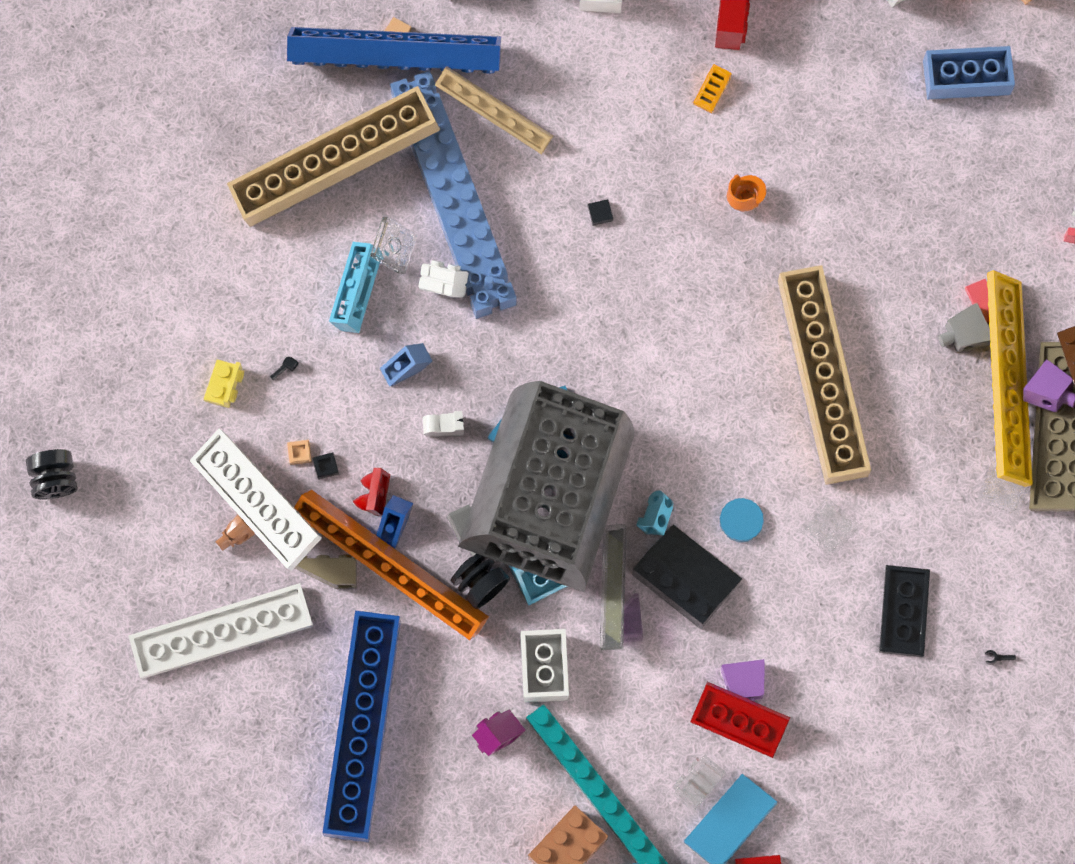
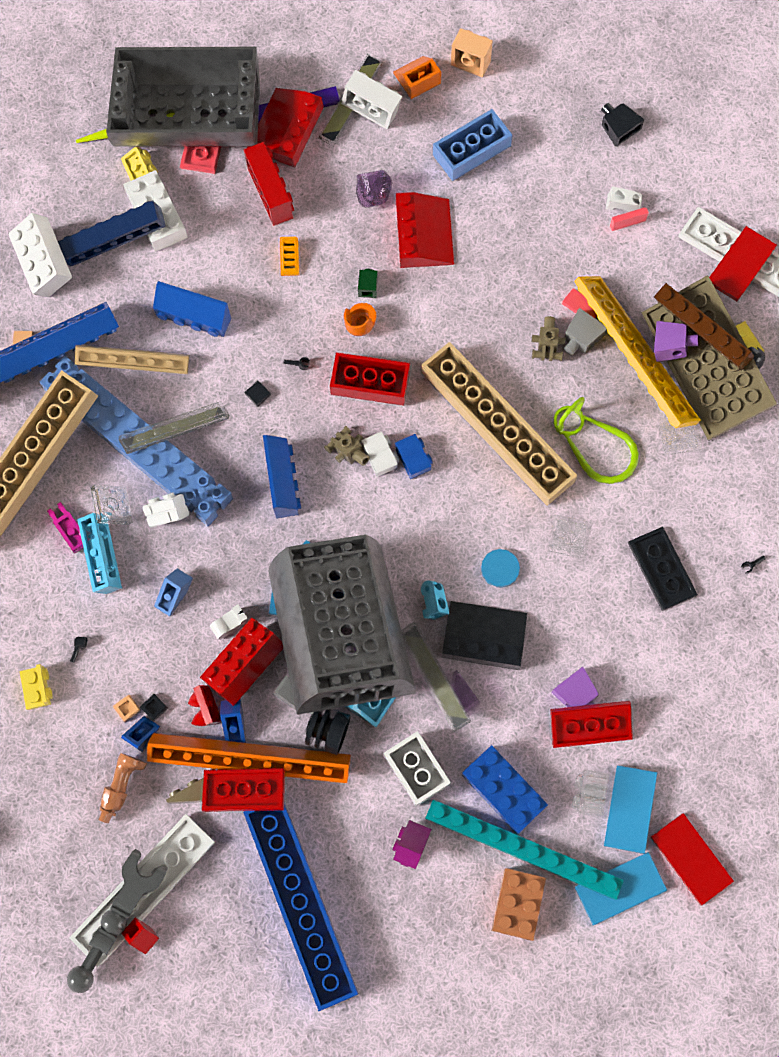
camera: 25 degrees left, 0 degrees up
(180, 642) = (115, 920): none -> dark grey piece
(195, 671) = (140, 935): none -> red brick
(255, 499) = (113, 768): white plate -> none
(298, 483) = (140, 733): none -> blue slope
(338, 245) = (68, 528): none -> dark pink hinge
(367, 590) = (243, 790): none -> red tile
(435, 468) = (242, 661): none -> red brick
(497, 201) = (173, 427): none -> clear tile
(575, 309) = (281, 476): none -> blue slope
(581, 91) = (191, 309): none -> blue slope
(618, 733) = (504, 789): none -> blue brick
(658, 203) = (298, 363): none -> black hand
(658, 316) = (347, 447): none -> dark tan piece
(687, 340) = (379, 453): none -> white brick
(719, 361) = (413, 456): none -> blue brick
(720, 259) = (369, 378): none -> red brick
(776, 160) = (367, 283): none -> dark green brick
(838, 64) = (373, 188): none -> clear purple helmet
(866, 135) = (424, 230): none -> red slope
(888, 466) = (576, 407): none -> lime animal
(925, 319) = (548, 341): none -> dark tan piece

